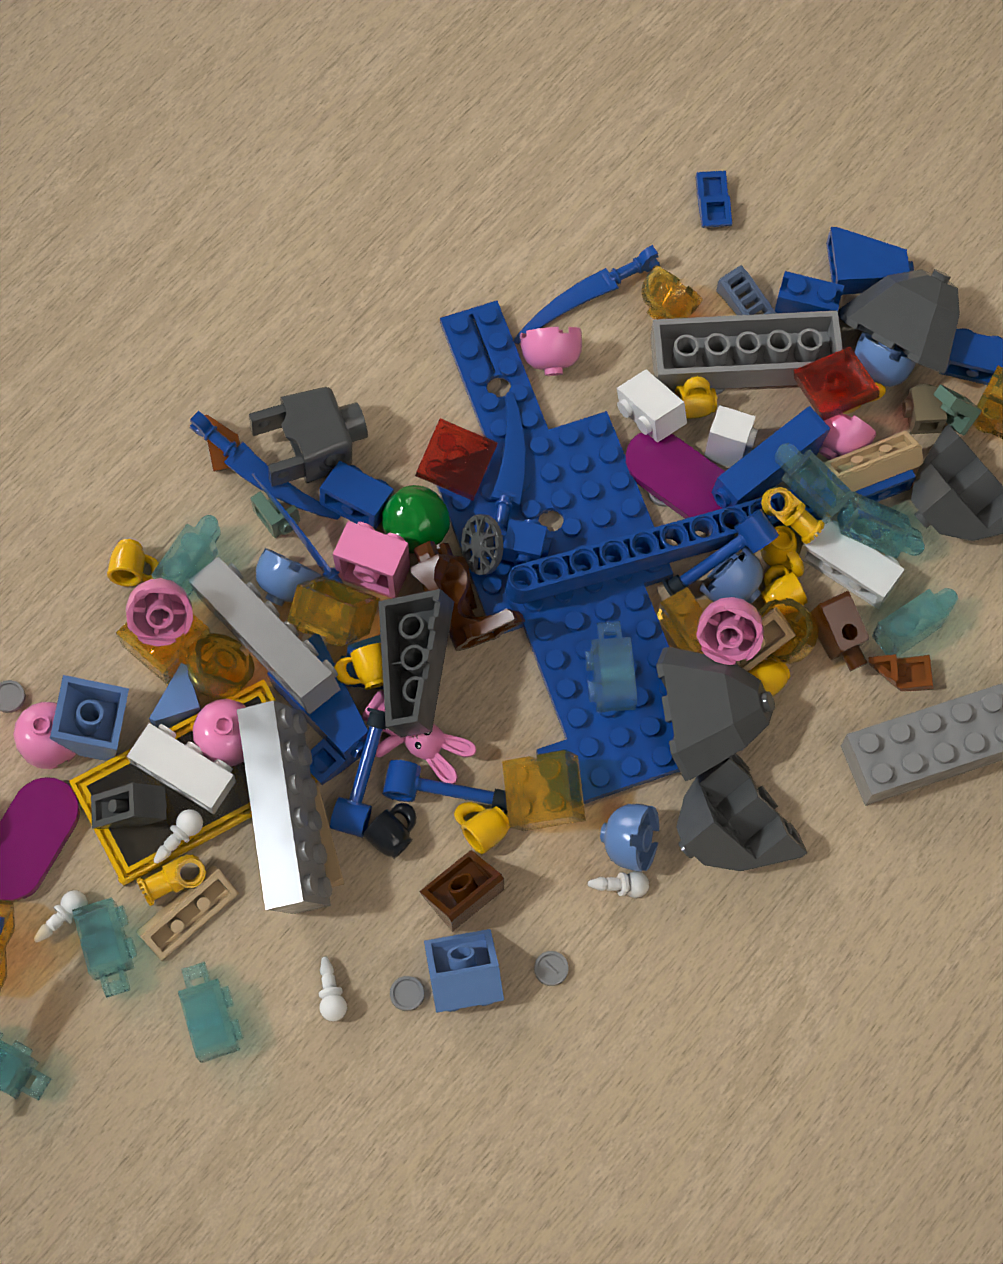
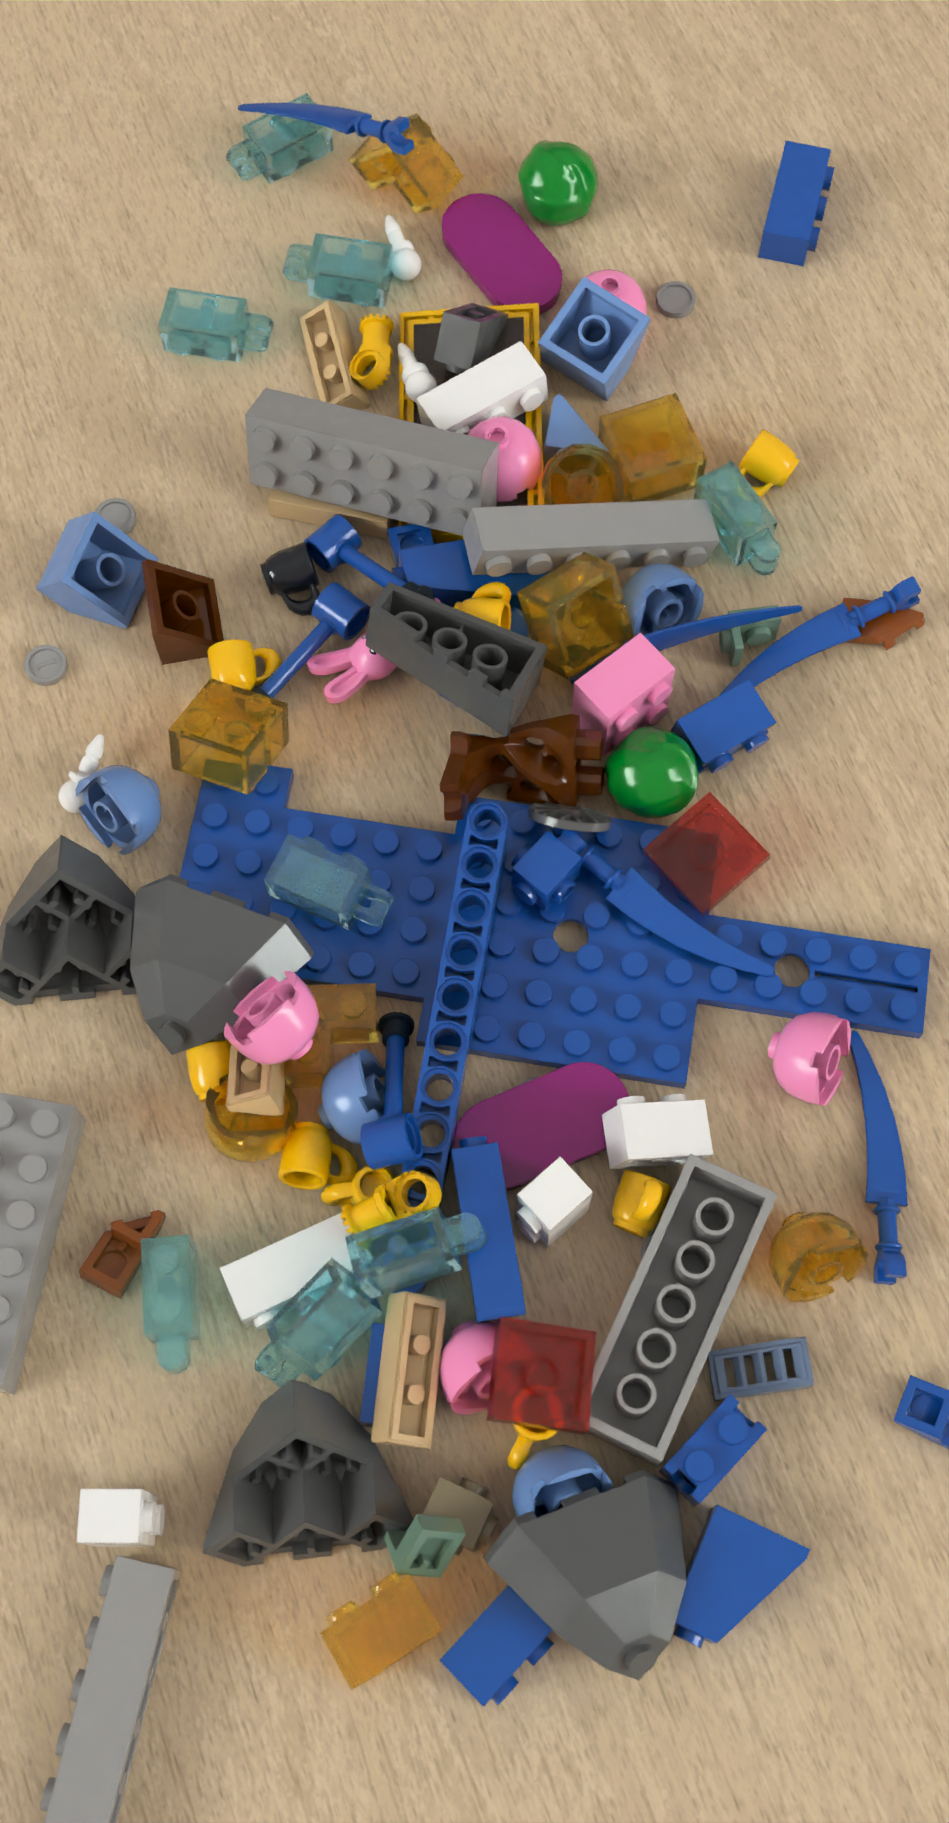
camera: 120 degrees right, 0 degrees up
(159, 612) = (669, 423): bright pink cylinder -> none
(316, 430) = (829, 711): dark grey piece -> none
(333, 1005) = (146, 440): white bar -> none
(841, 630) = (216, 1190): reddish brown torso -> none

